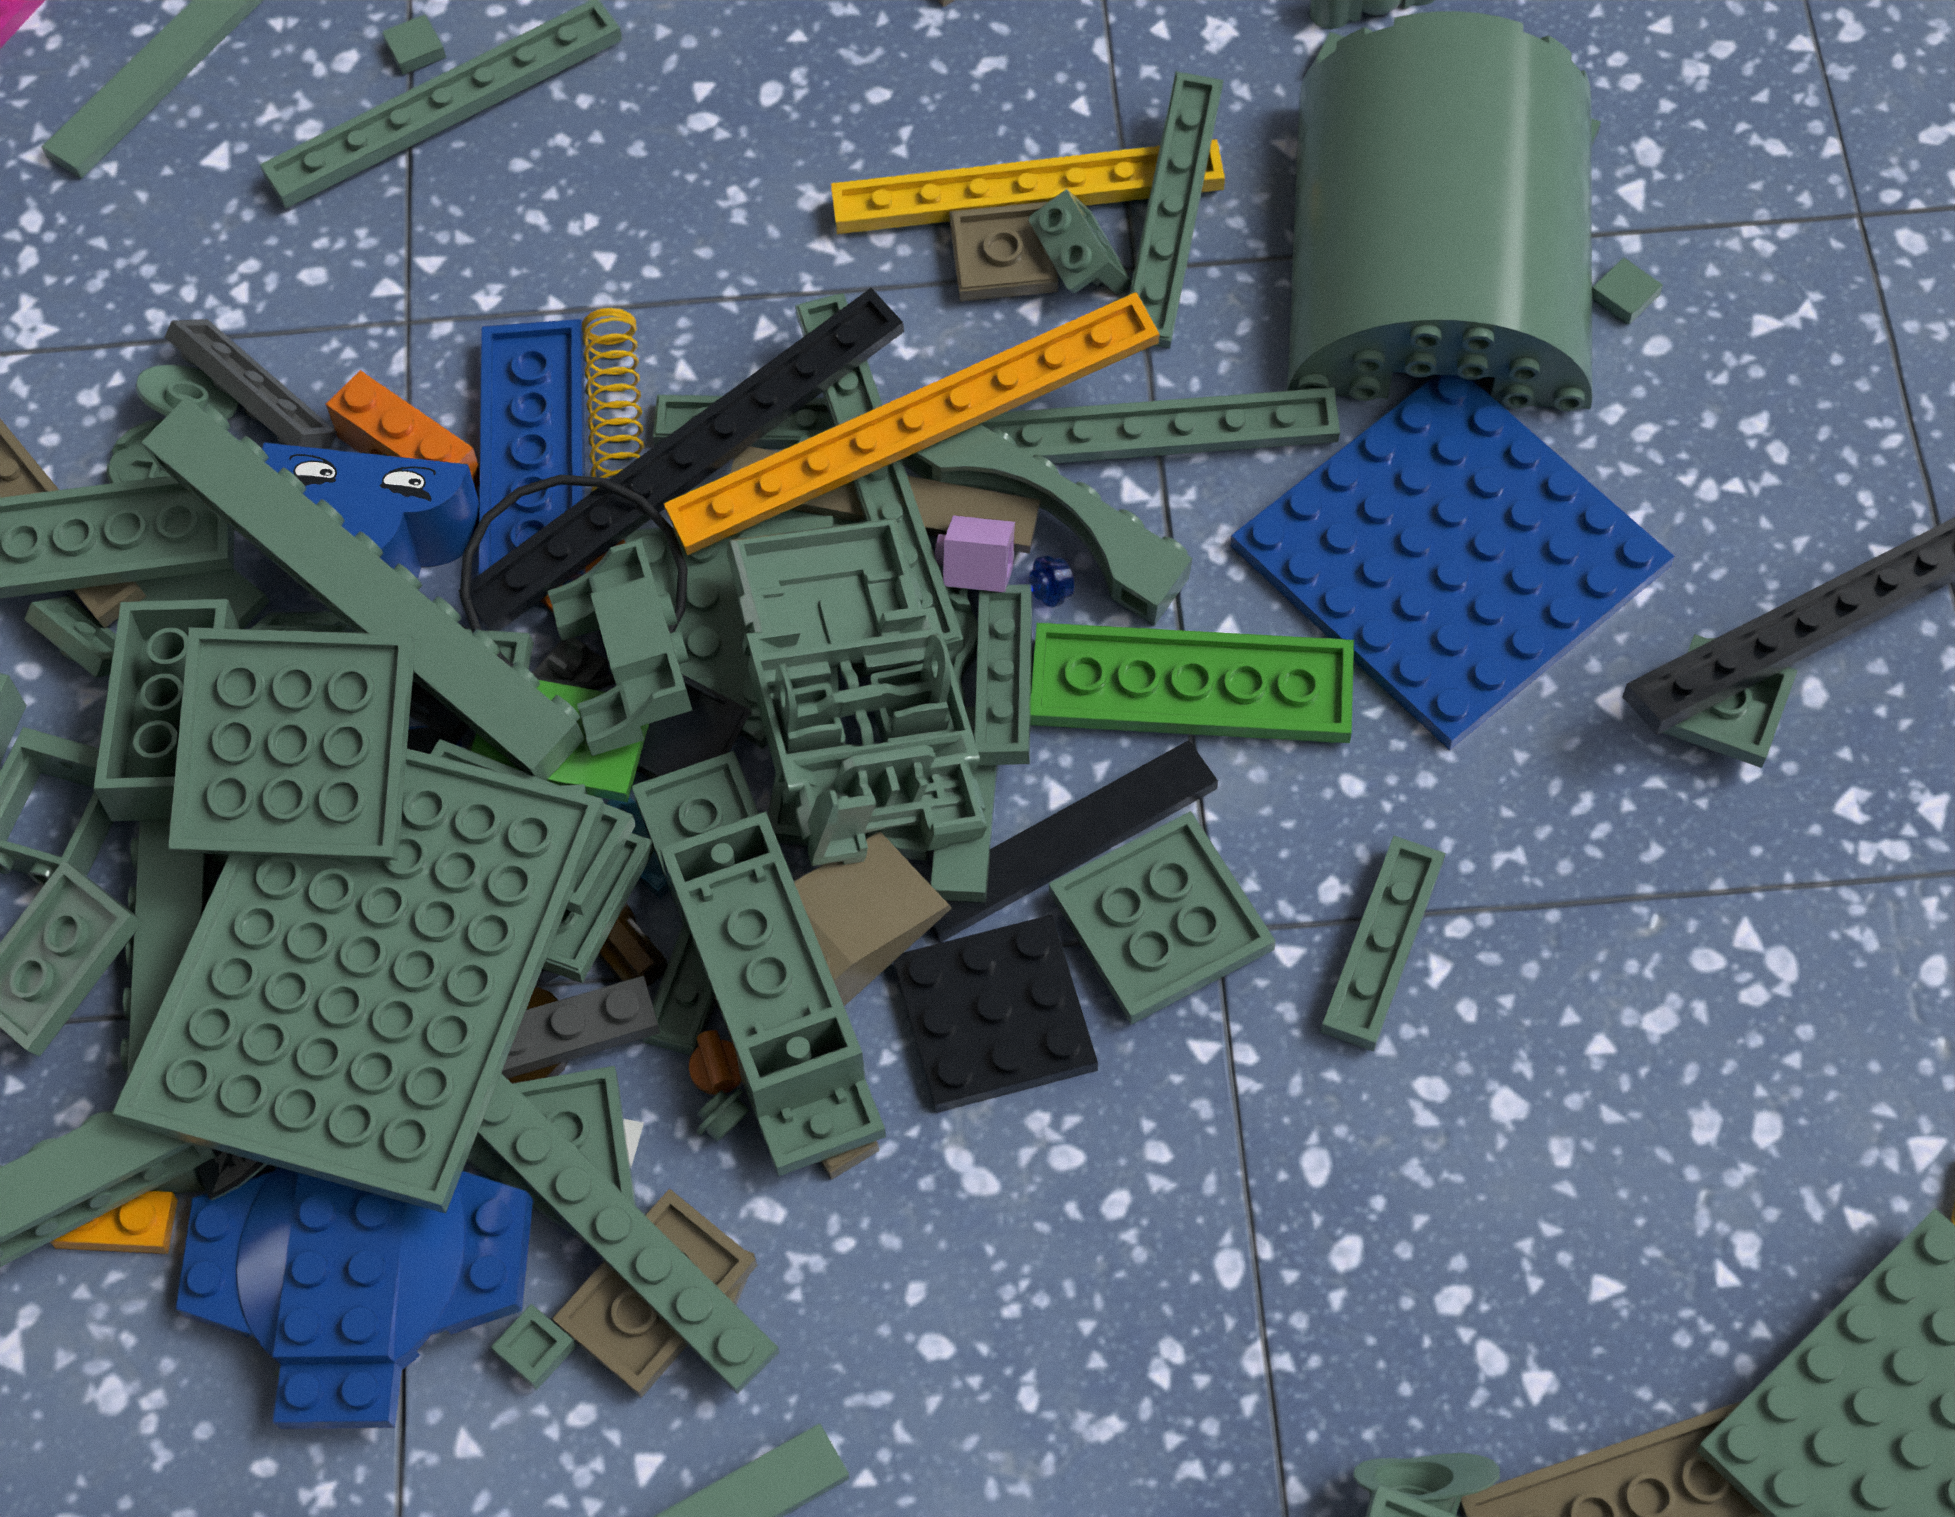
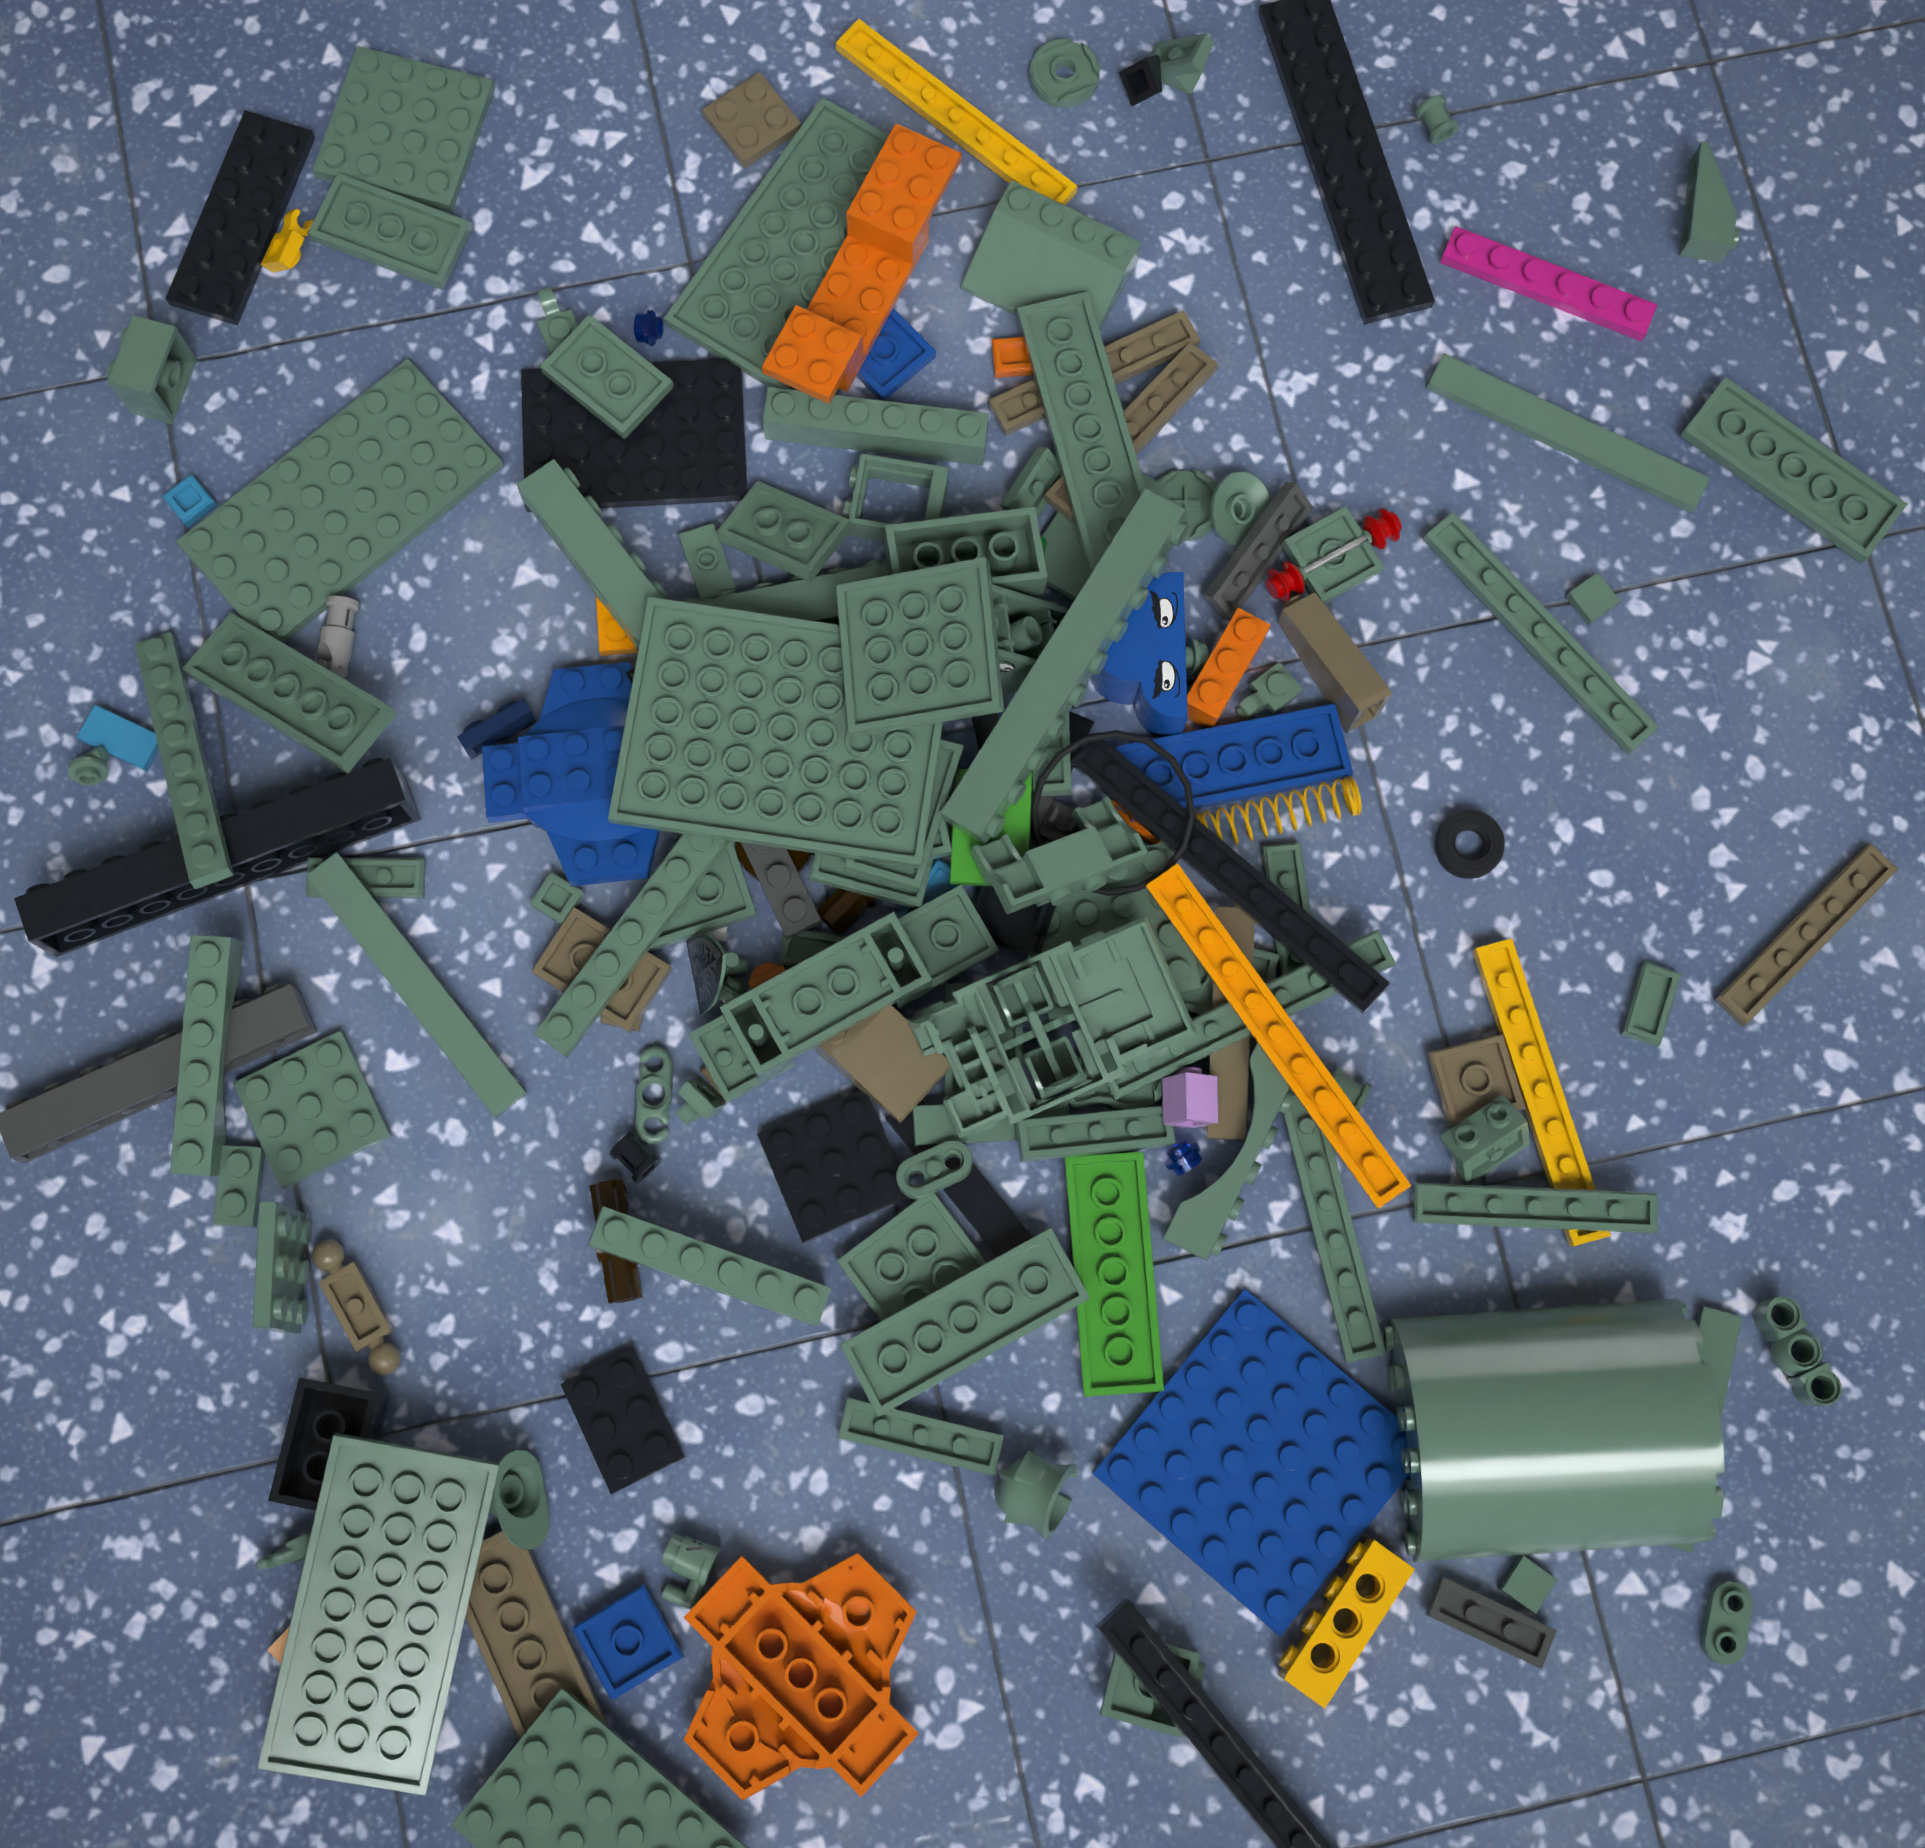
camera: 75 degrees right, 15 degrees up
(66, 1082) = (706, 561): none -> sand green plate
(237, 1386) = (508, 721): none -> dark blue plate
(281, 302) = (1333, 555): none -> sand green plate
(425, 314) = (1334, 661): none -> dark tan slope
(447, 401) = (1270, 691): none -> sand green plate
(684, 1134) = (709, 966): none -> shield
(699, 241) = (1479, 823): none -> black tyre
(876, 1176) = (700, 1101): none -> sand green tile
(876, 1257) = (664, 1078): none -> sand green piece
(938, 65) = (1650, 1004): none -> sand green tile
(942, 1274) = (635, 1156): none -> black bush
(1024, 874) = (933, 1169): none -> sand green plate
(1062, 1314) = (620, 1275): none -> dark brown piece
(1117, 1177) = (709, 1266): none -> sand green brick
(1239, 858) = (964, 1321): none -> sand green plate
(1321, 1338) = (622, 1420): none -> black plate
(1472, 803) = (1031, 1493): none -> sand green helmet
(1528, 1257) = (693, 1561): none -> sand green piece
(1636, 1360) = (628, 1642): none -> blue plate
(1653, 456) = (1367, 1612): none -> yellow brick
(1669, 332) = (1491, 1622): none -> dark grey plate
(1683, 105) = (1722, 1622): none -> sand green plate
(1696, 1126) = (800, 1676): none -> orange plate

